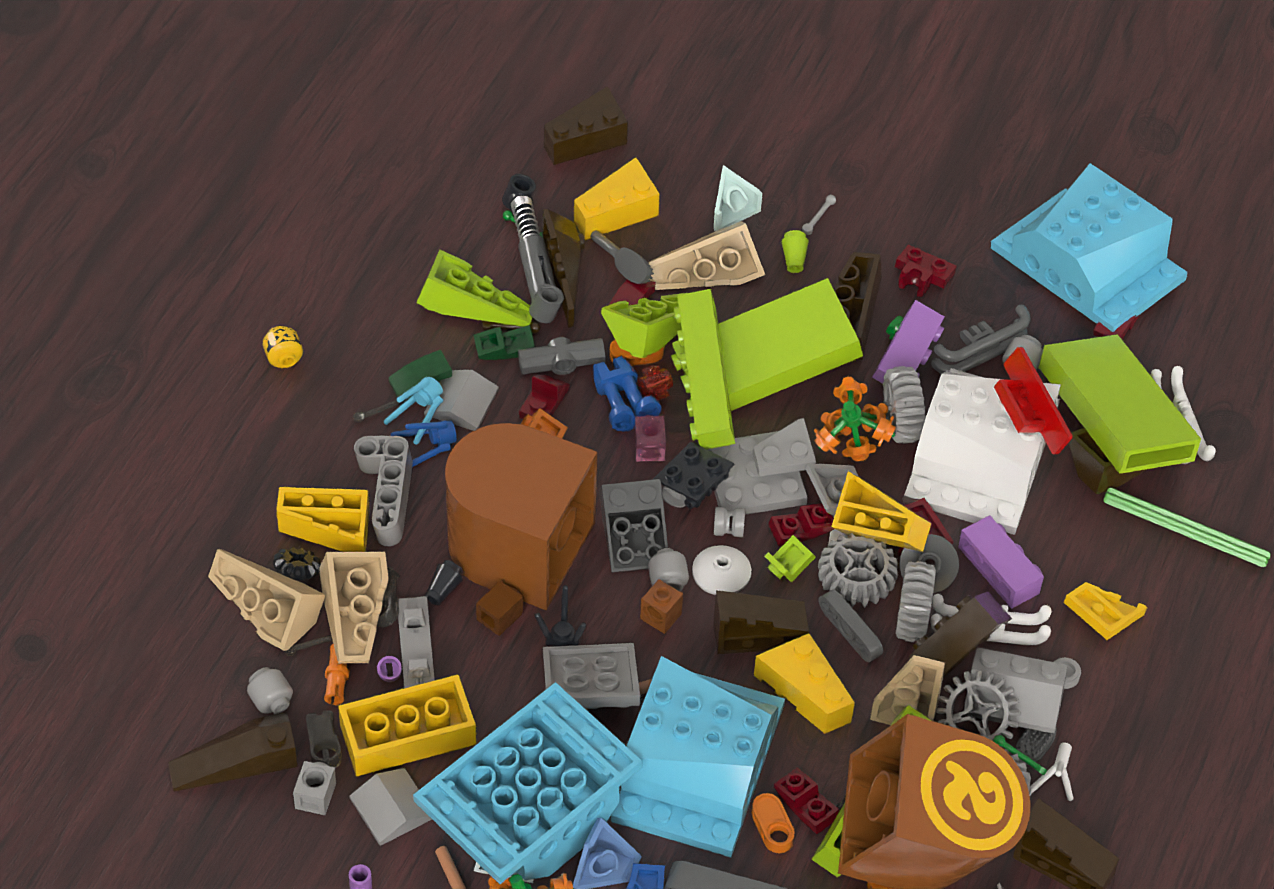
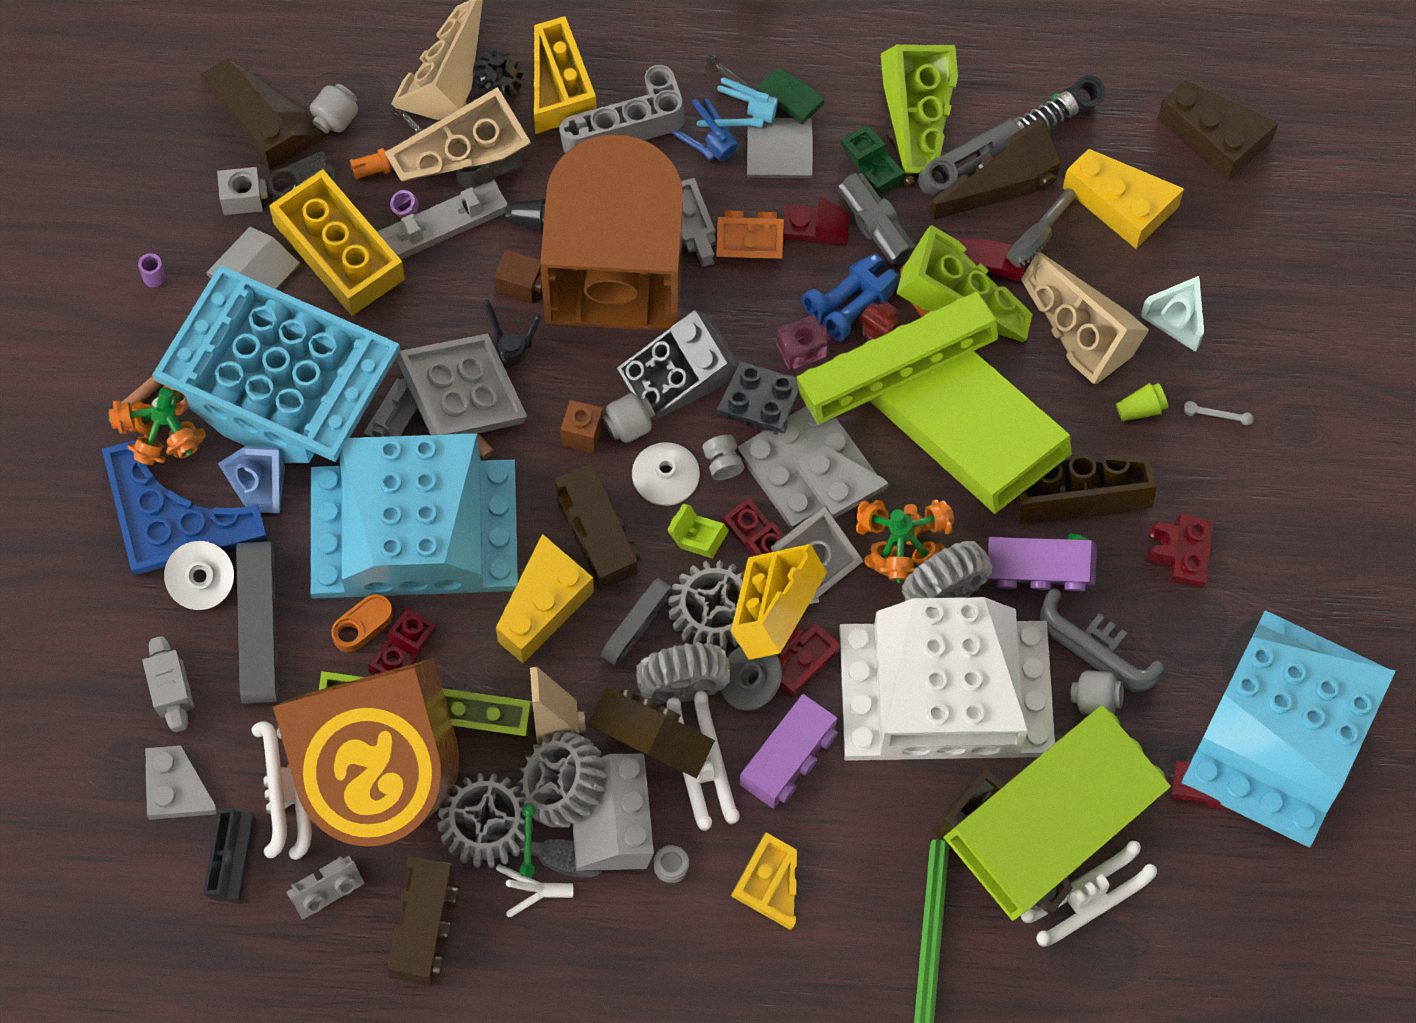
camera: 70 degrees right, 15 degrees up
(1030, 402) = (963, 694): red bracket -> none

